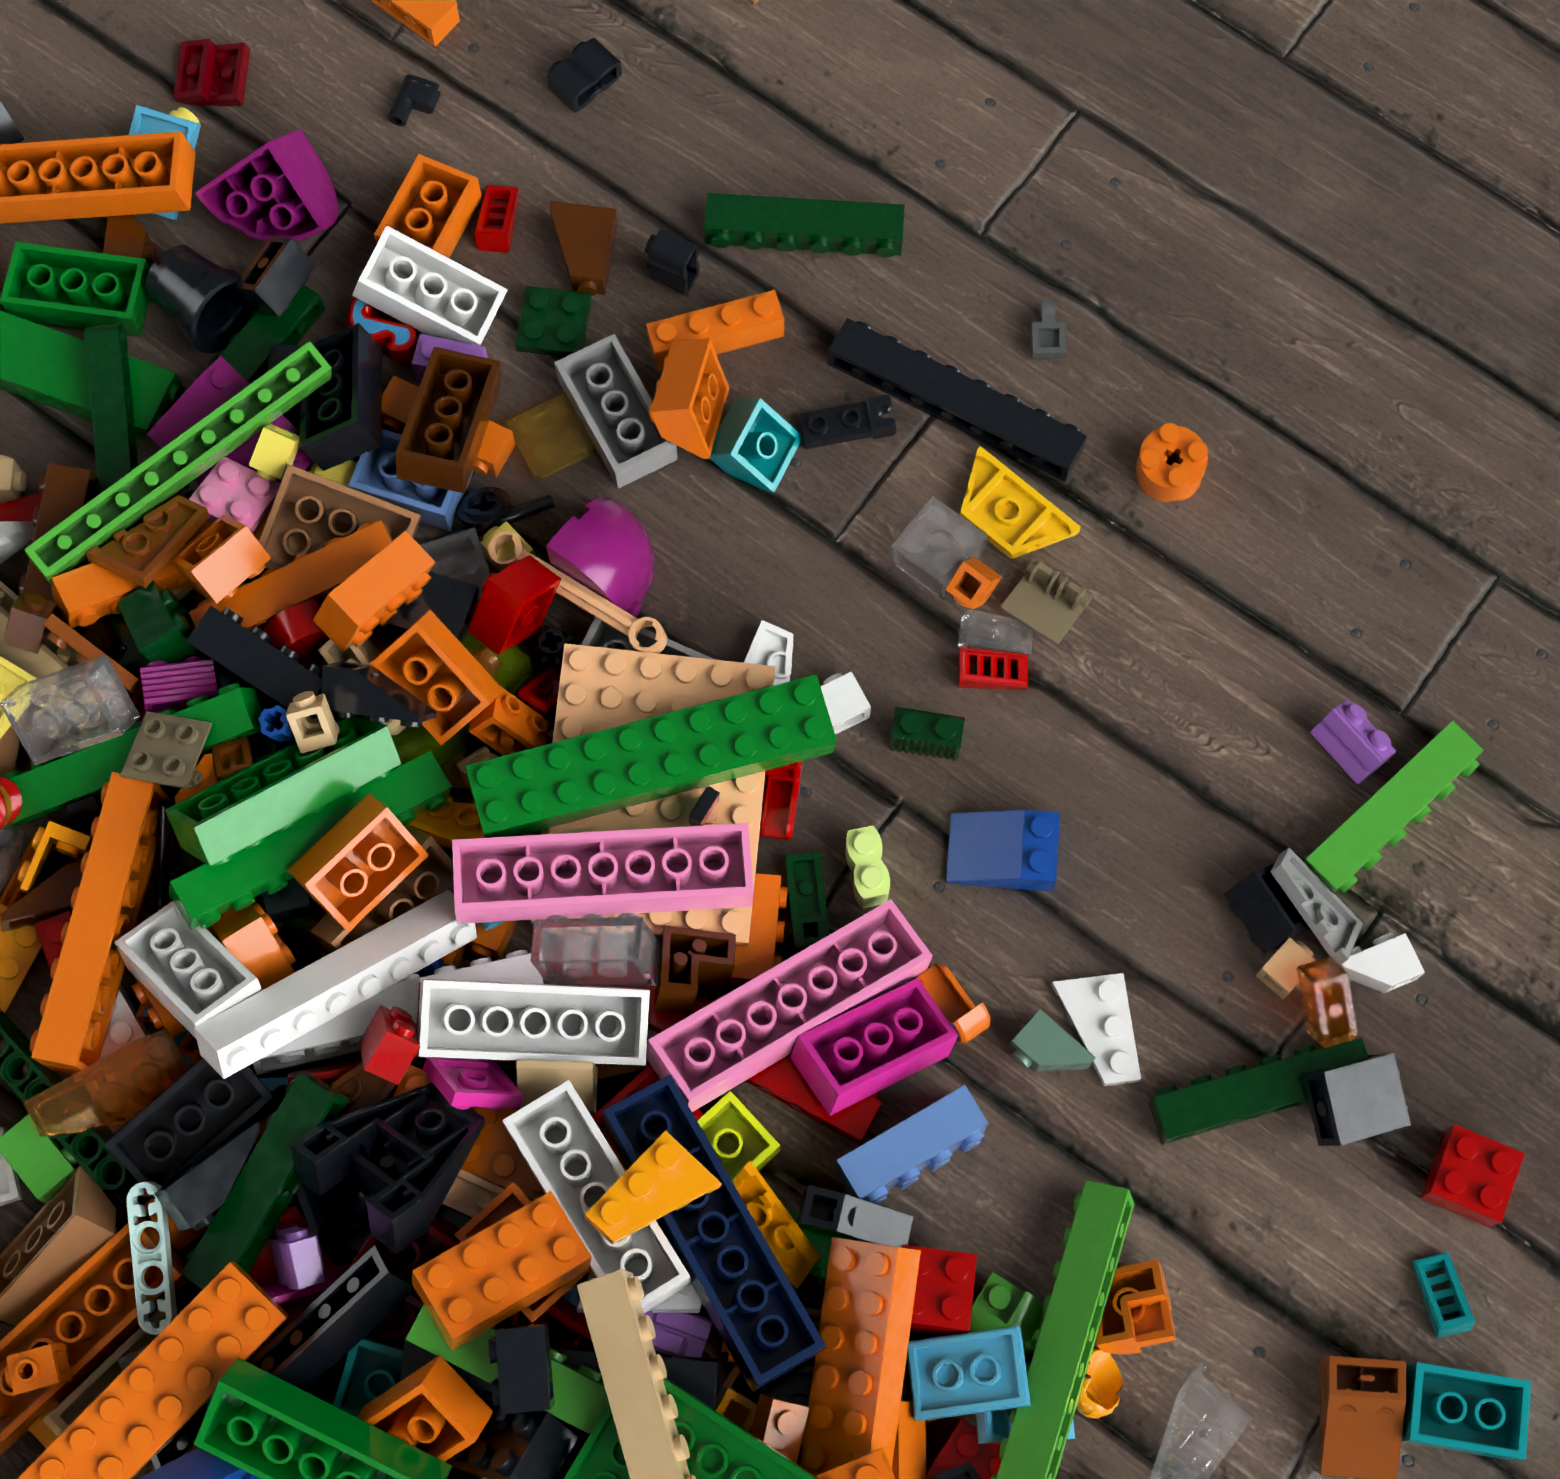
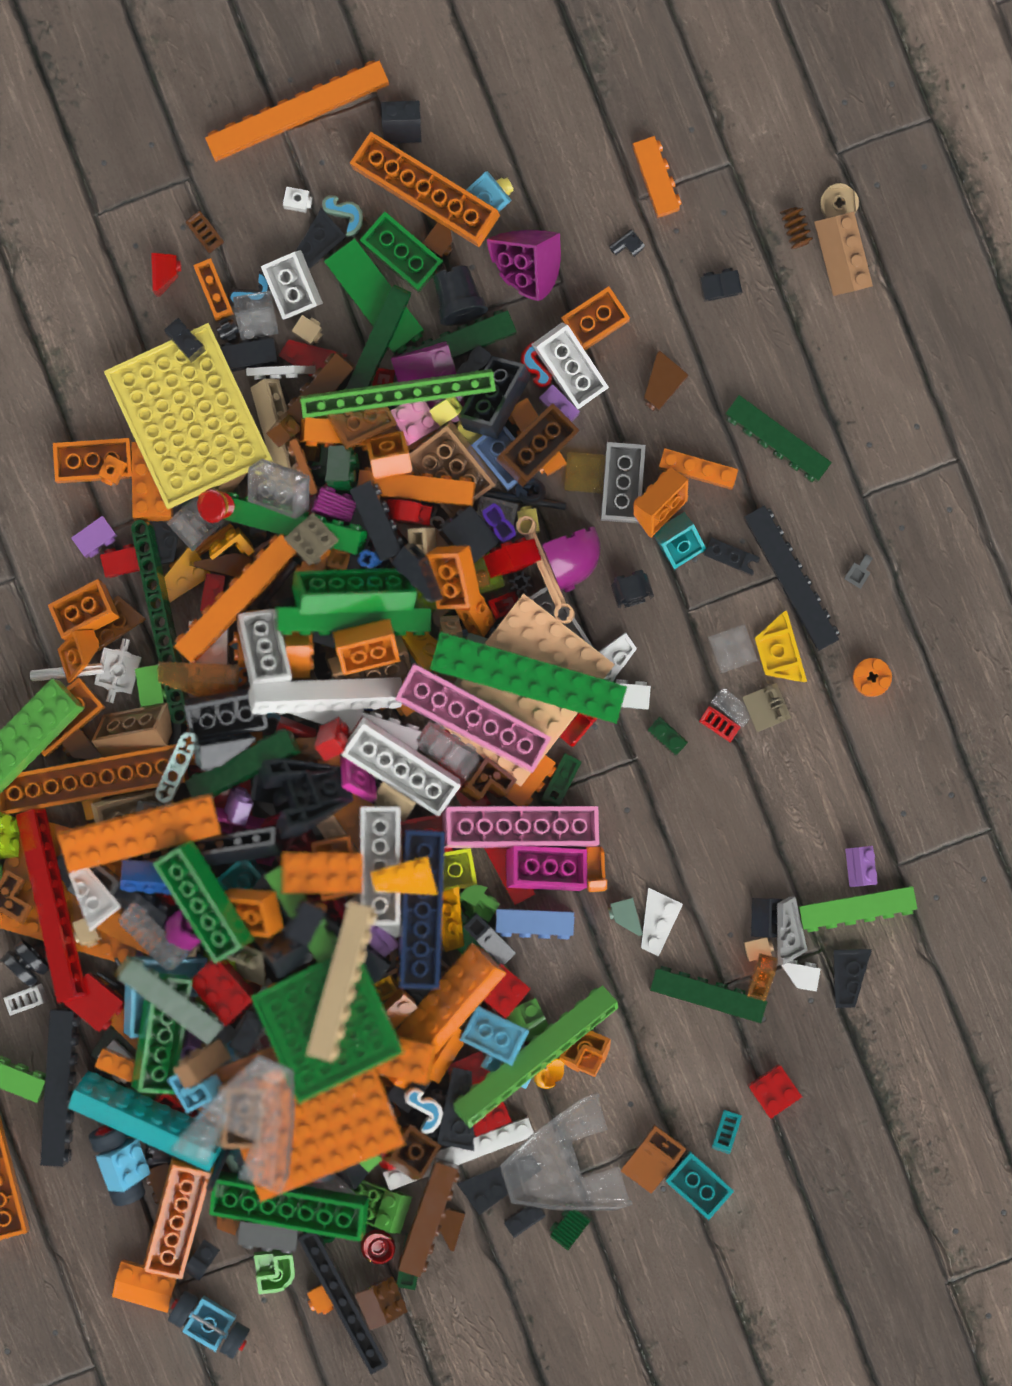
camera: 35 degrees right, 15 degrees up
(38, 1369) = (102, 784): orange brick -> none
(211, 73) = (535, 165): dark red slope -> none
(275, 276) = (499, 313): black brick -> none
(308, 731) = (385, 565): tan brick -> none
(375, 592) = (448, 524): orange brick -> none
(460, 561) = (495, 519): none -> dark purple brick
(494, 237) = (621, 350): red slope -> none
(553, 321) = (623, 412): dark green plate -> none
(672, 261) = (698, 421): black brick -> none
(704, 807) = (537, 714): black tile -> none
(729, 550) = (632, 589): none -> black brick
(792, 1170) = (475, 900): none -> bright green brick
(871, 875) = (597, 787): yellowish green brick -> none
(973, 583) = (736, 678): orange brick -> none
(1004, 849) = (666, 812): blue slope -> none
(1356, 1100) = (745, 1027): panel -> none
(1450, 918) = (848, 975): none -> black wing

